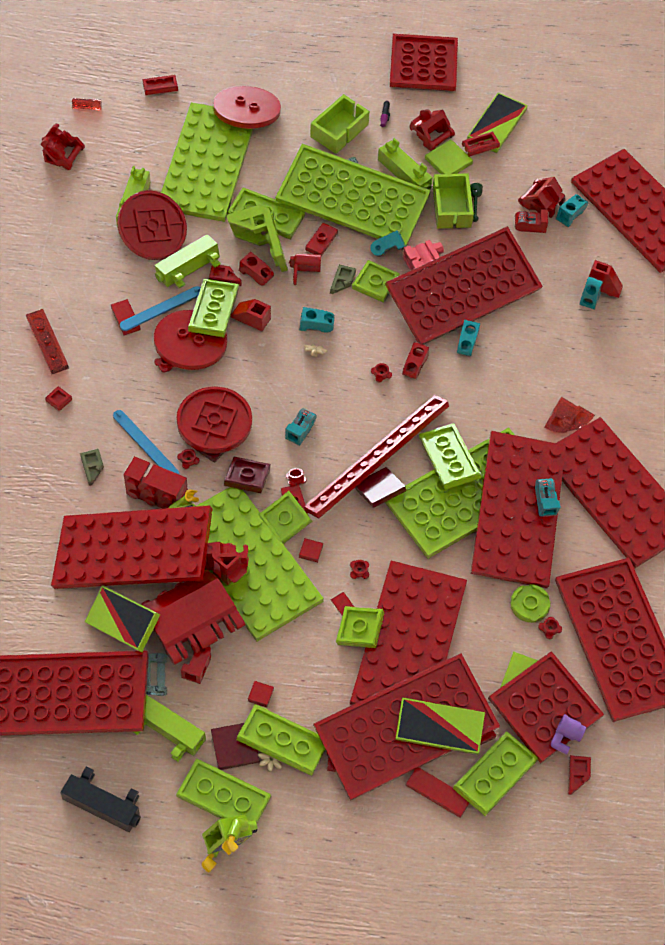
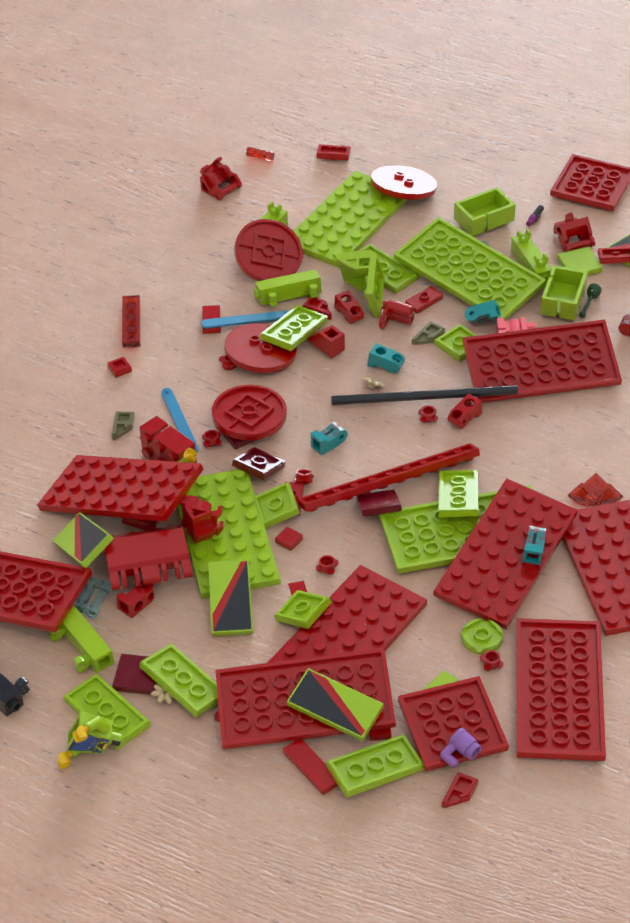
camera: 25 degrees right, 15 degrees down
(260, 694) = (183, 639): red tile -> none
(288, 635) = (230, 598): none -> tile
(369, 353) = (424, 395): none -> black piece
(468, 338) = (525, 405): teal leg -> none

